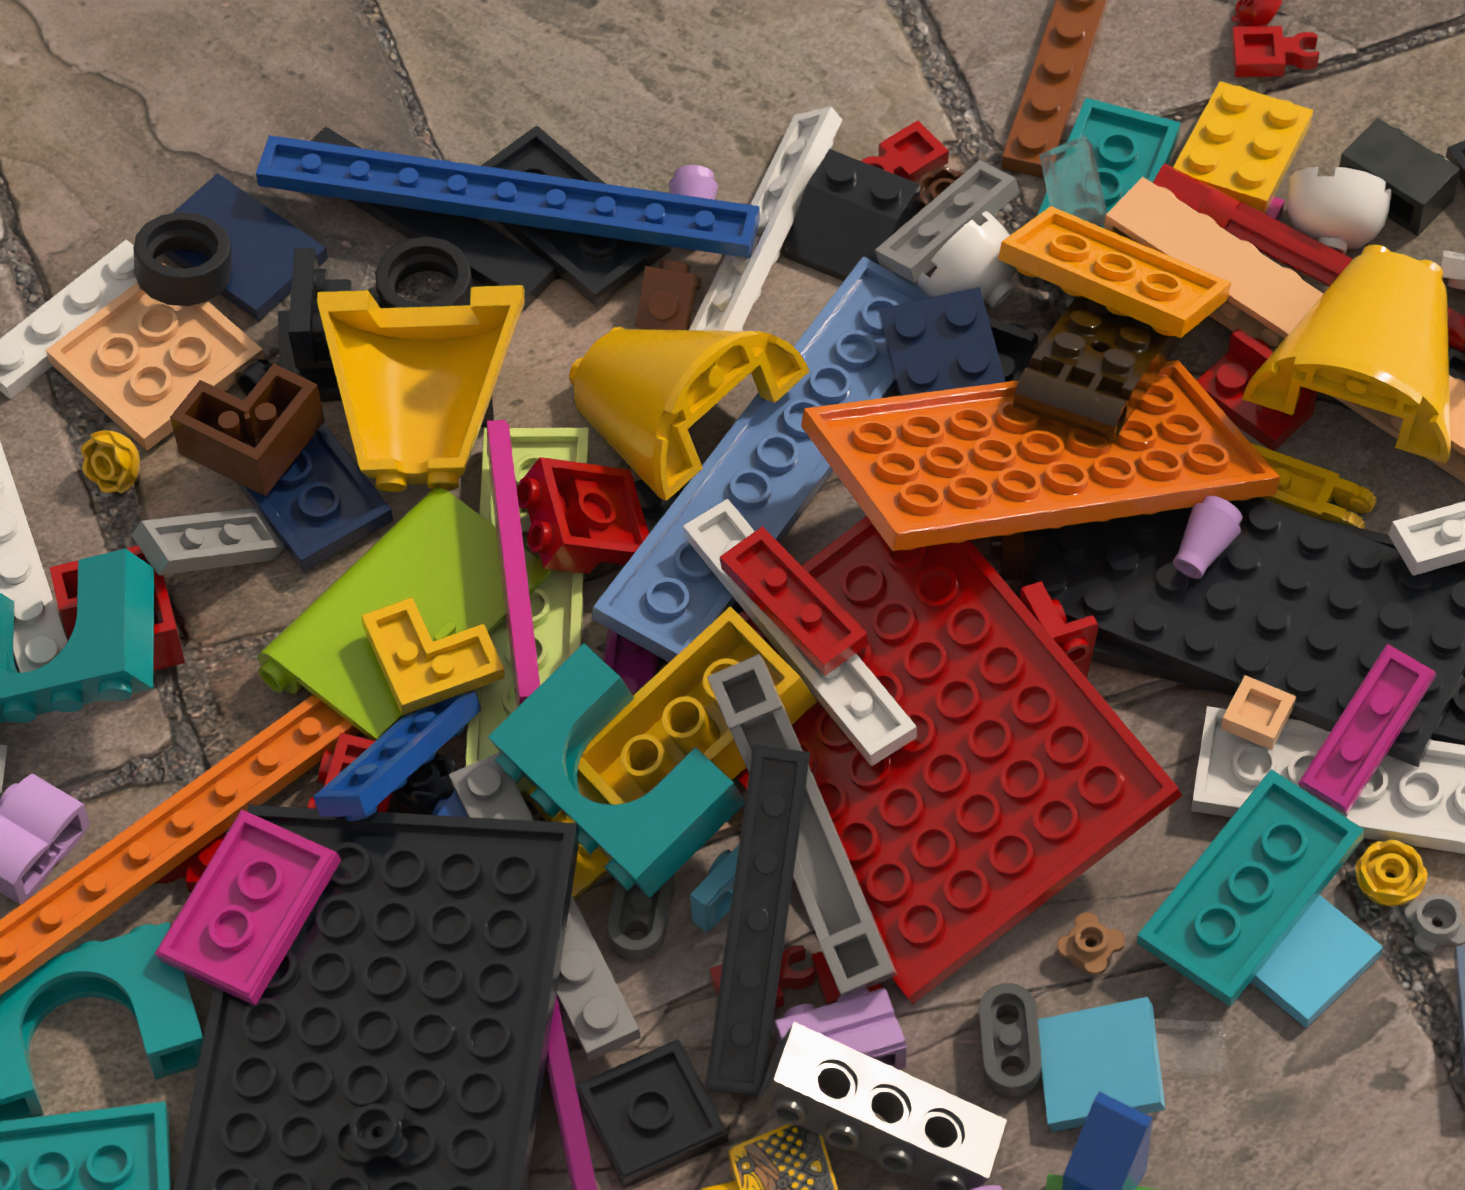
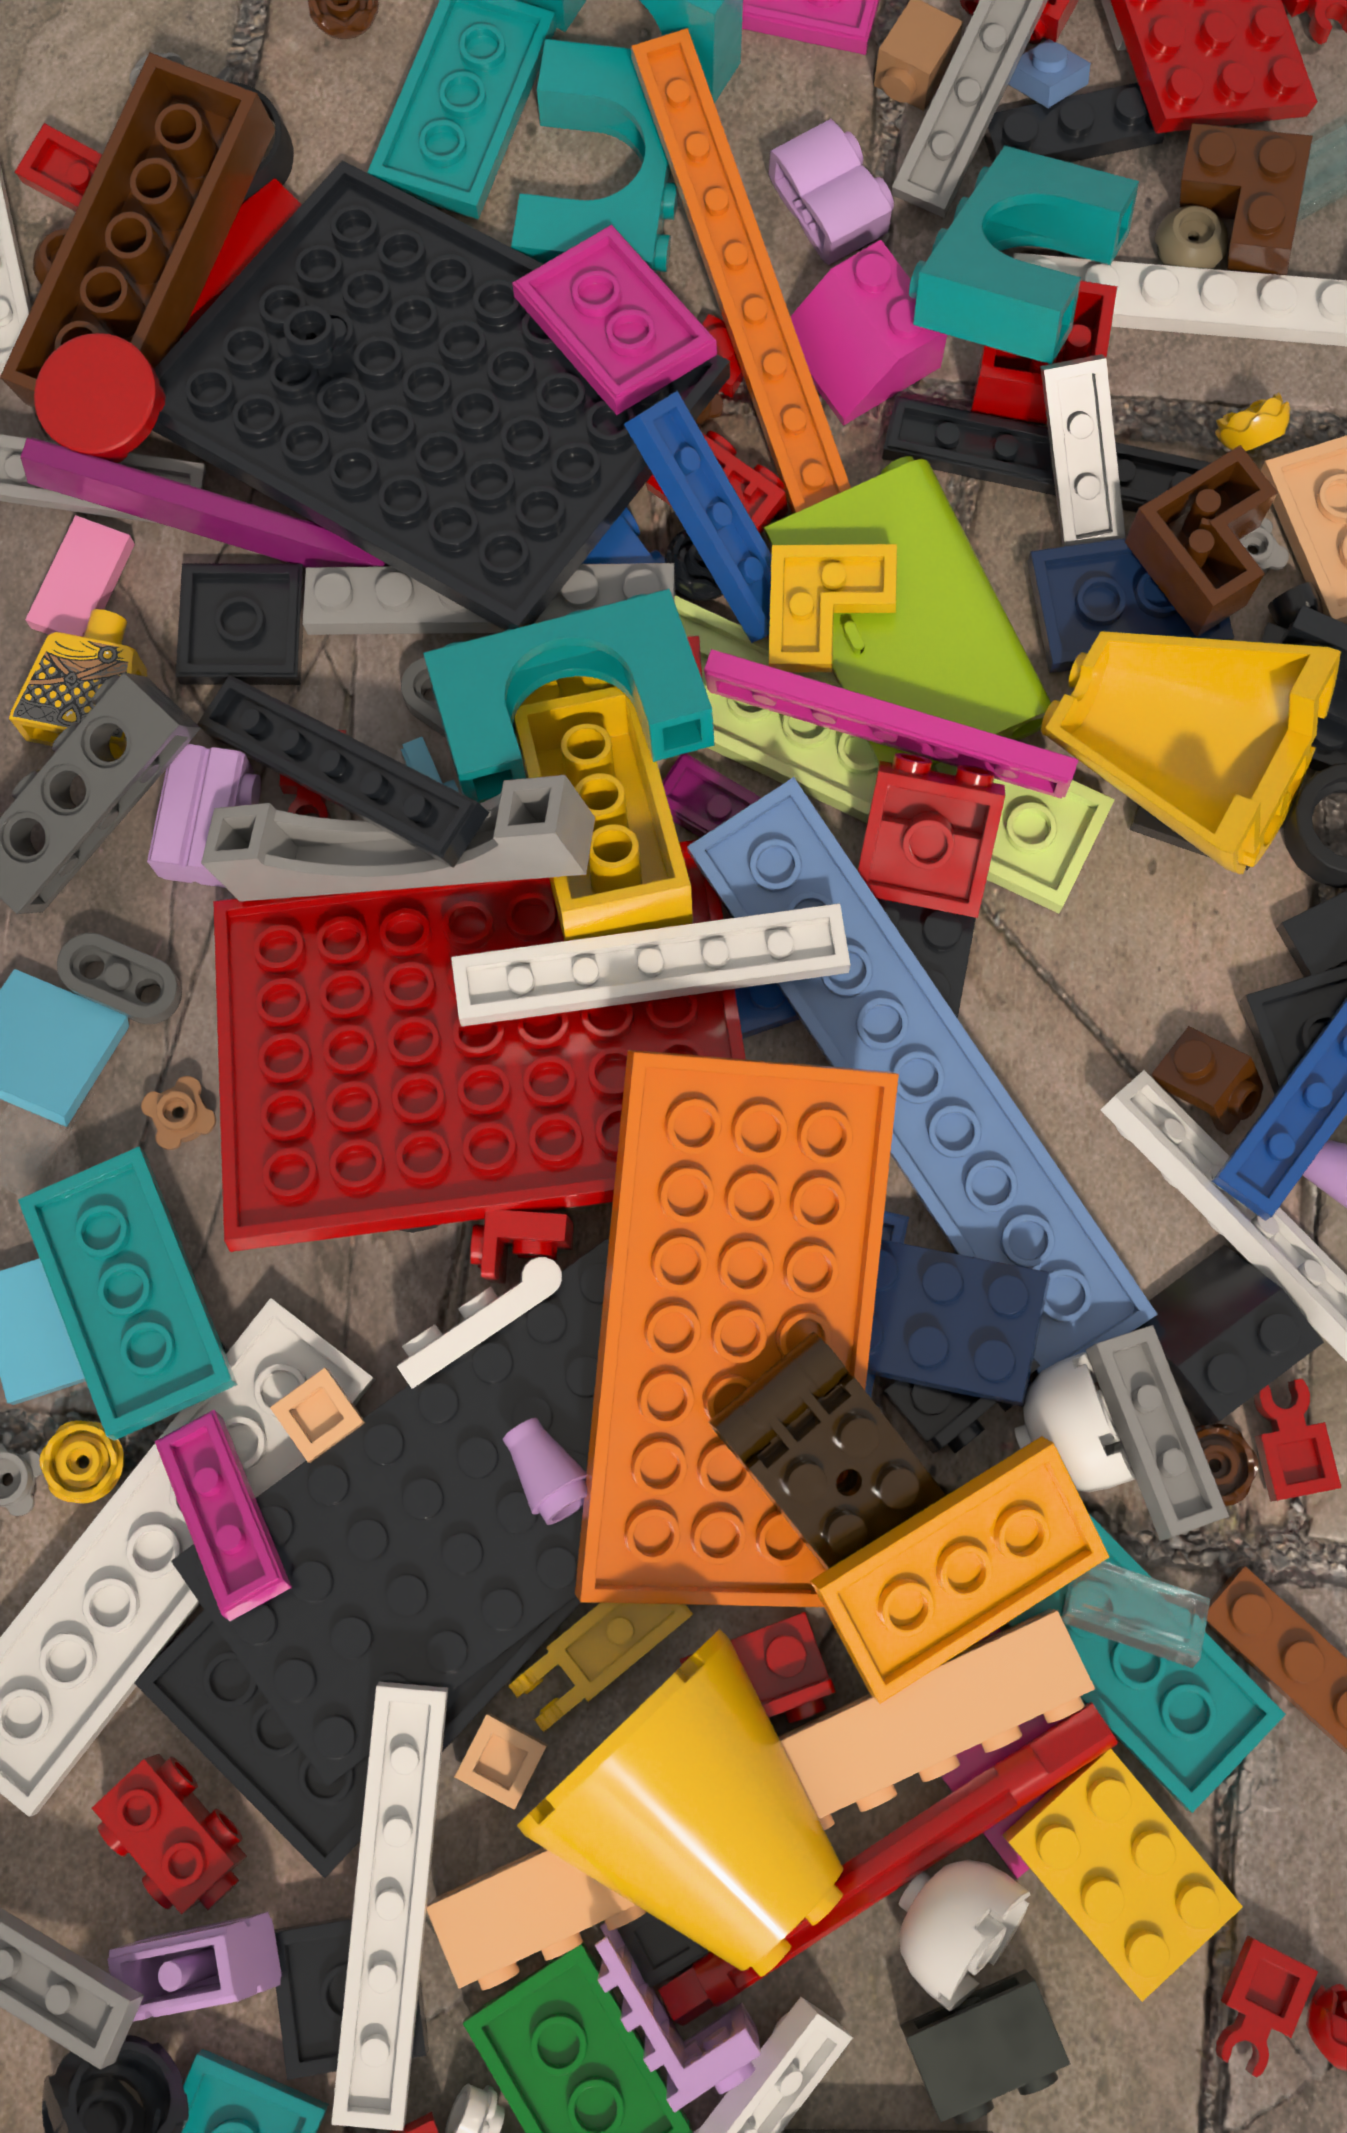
camera: 115 degrees right, 20 degrees up
(149, 750) = (863, 335): none -> dark pink slope
(205, 601) = (1016, 452): none -> black tile
(655, 384) = (1058, 999): yellow cone -> none
(794, 601) = (667, 956): red plate -> none
(1135, 637) = (482, 1318): none -> white plate
(1408, 500) = (501, 1761): none -> light nougat plate

